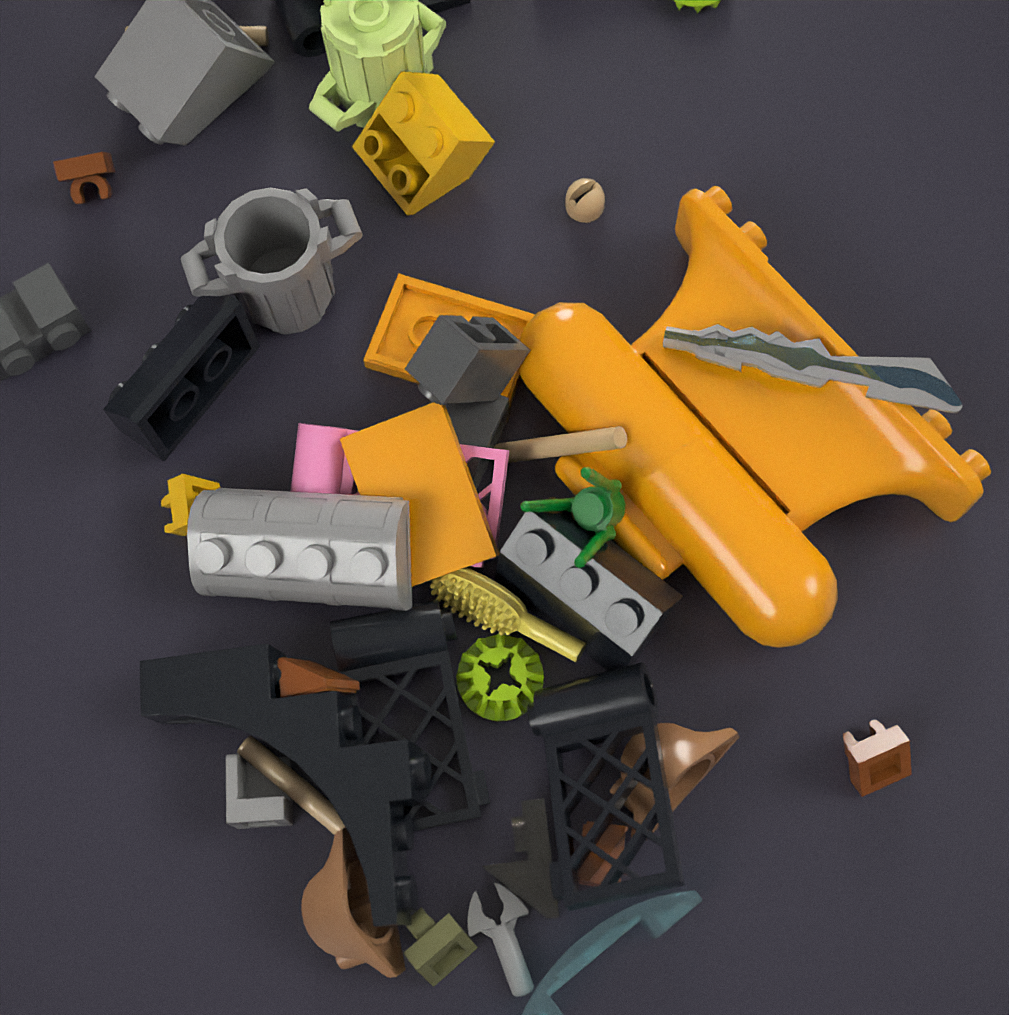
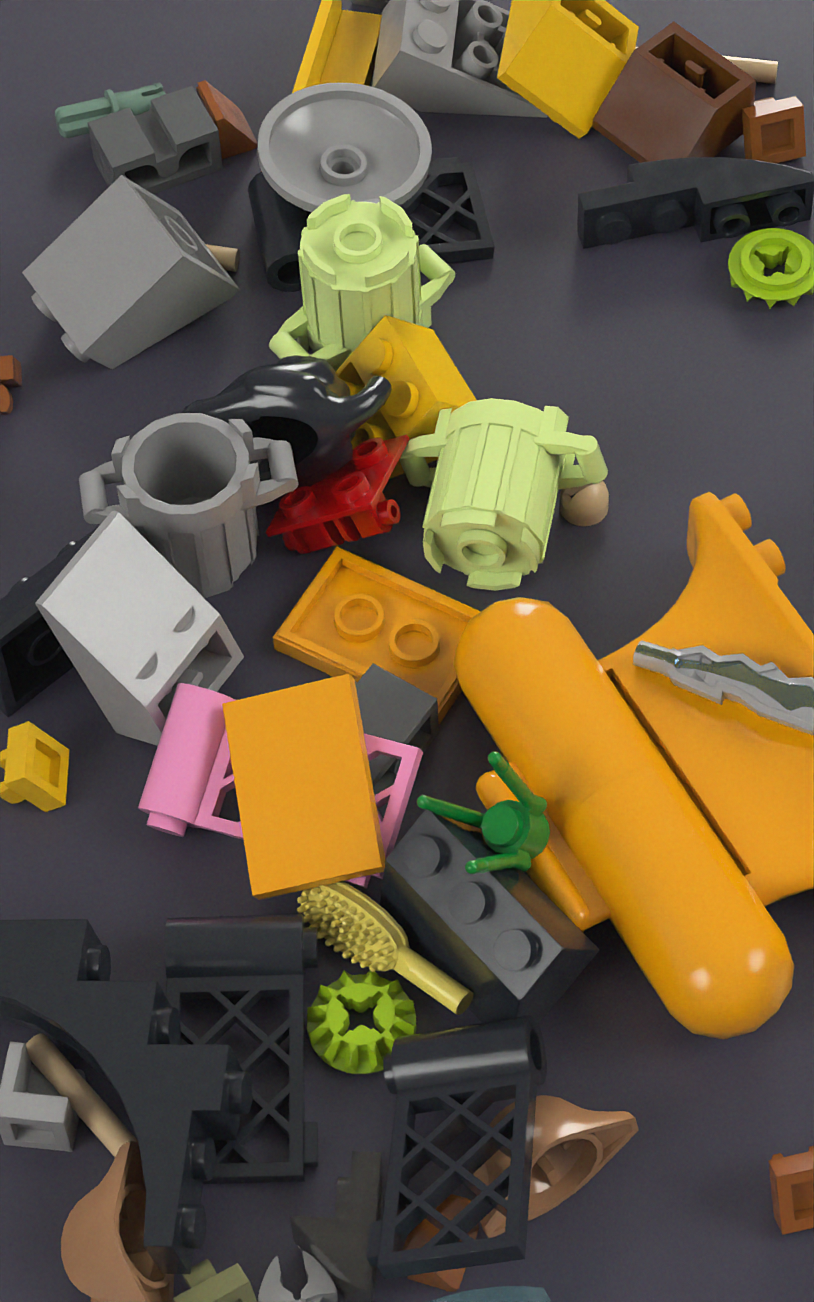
camera: 10 degrees right, 15 degrees down
(254, 381) = (135, 629): none -> slope
(301, 547) = (150, 826): light grey container -> none
(309, 677) = (118, 966): dark orange slope -> none
(343, 163) = (300, 404): none -> black piece
(395, 231) = (343, 503): none -> red hinge
(466, 360) = (390, 636): dark grey brick -> none
(518, 204) = (496, 486): none -> yellowish green container
(565, 444) = (475, 759): tan bar -> none

